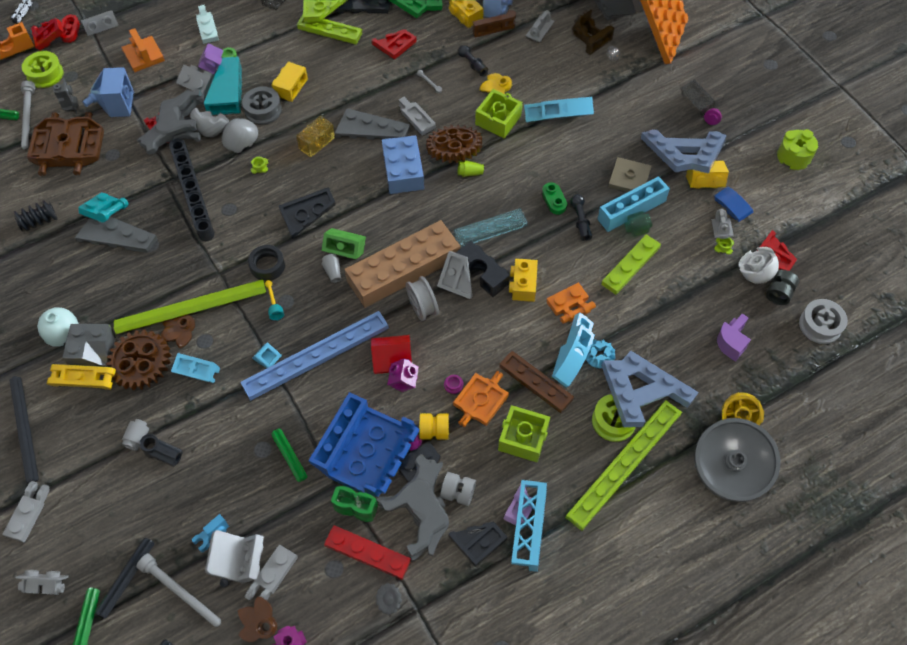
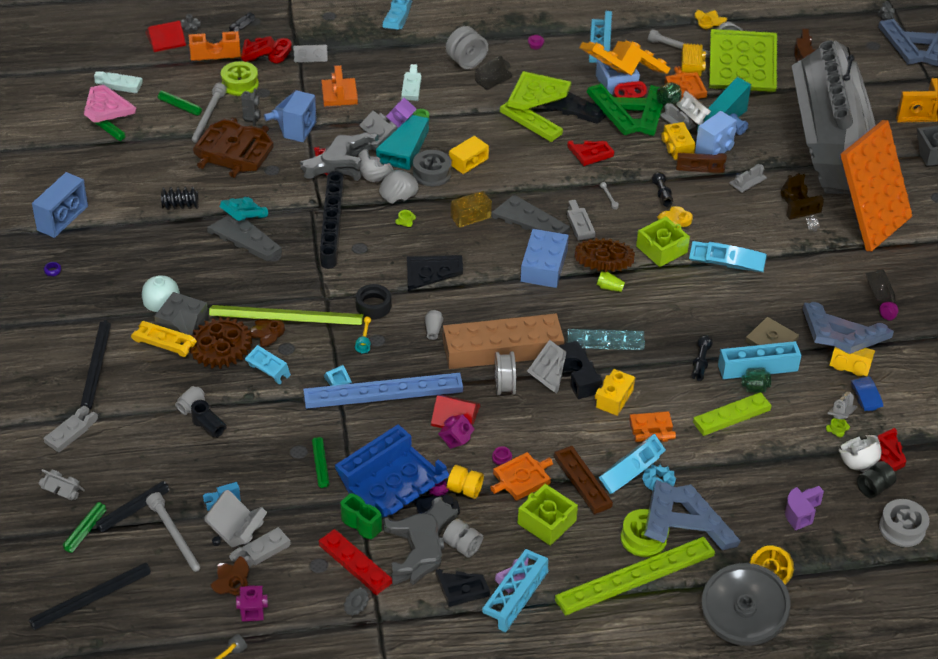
camera: 20 degrees right, 15 degrees down
(343, 243) = (453, 306): bright green brick -> none
(553, 194) = (683, 334): green plate -> none

